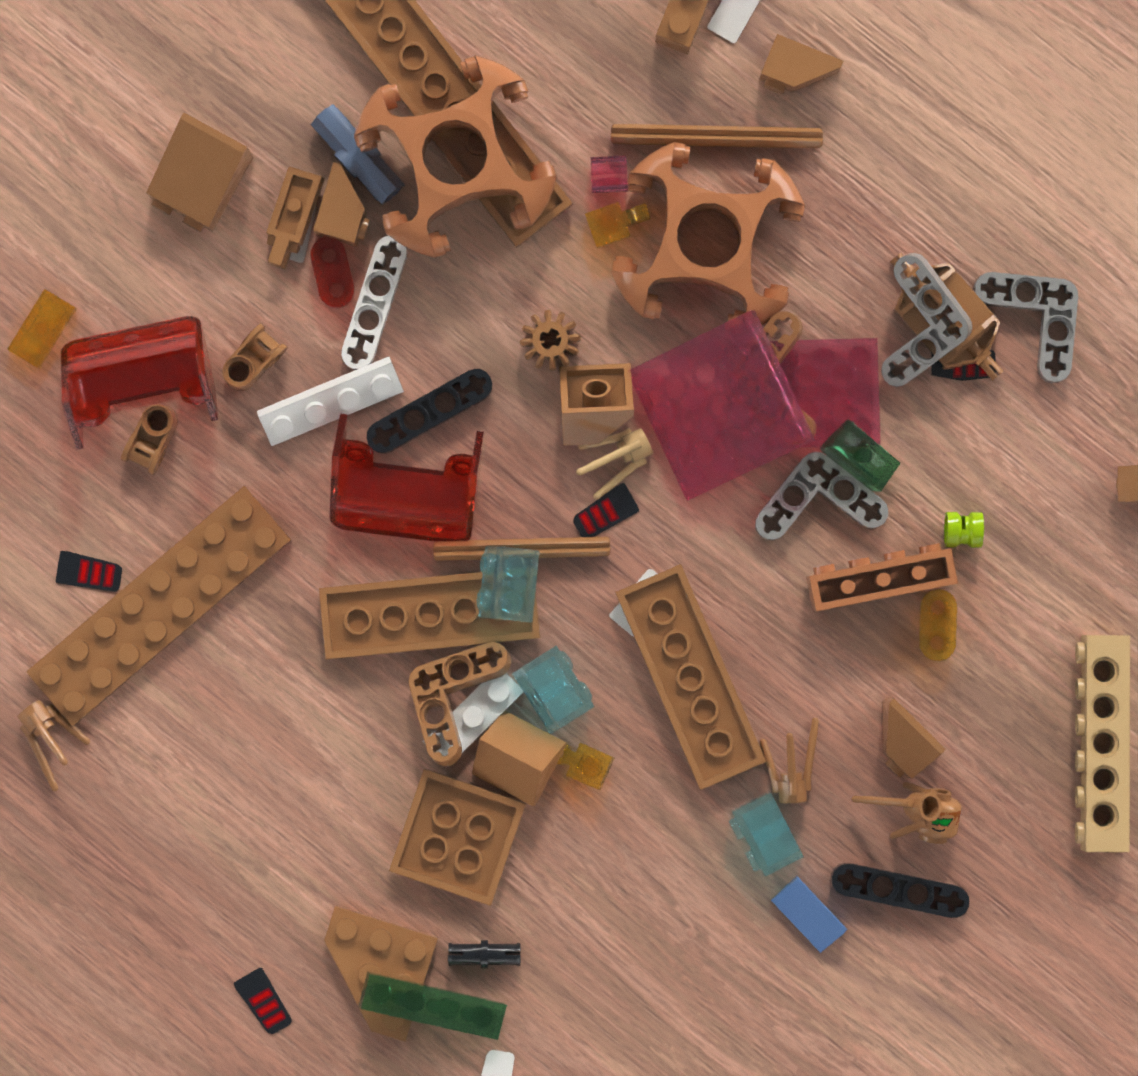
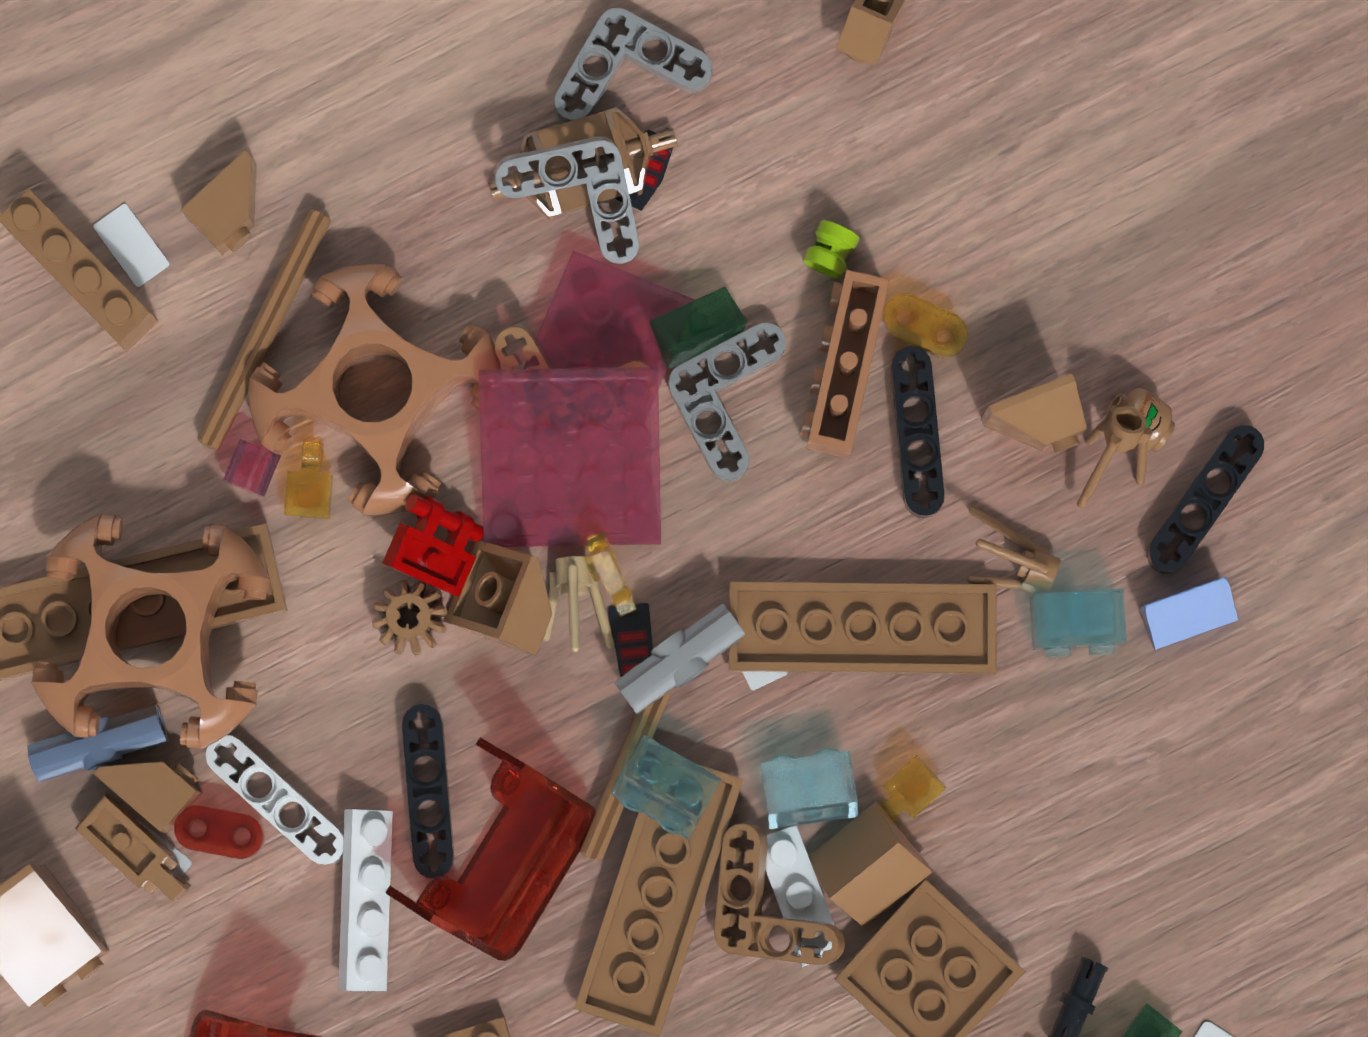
camera: 65 degrees left, 5 degrees down
(254, 357) = (275, 965): medium nougat piece -> none
(599, 335) = (428, 558): none -> red plate
(606, 552) = (680, 658): none -> light grey piece
(650, 466) = (605, 567): none -> clear yellow plate
(853, 650) = (912, 432): none -> black beam
(1115, 833) = (1163, 195): tan brick -> none

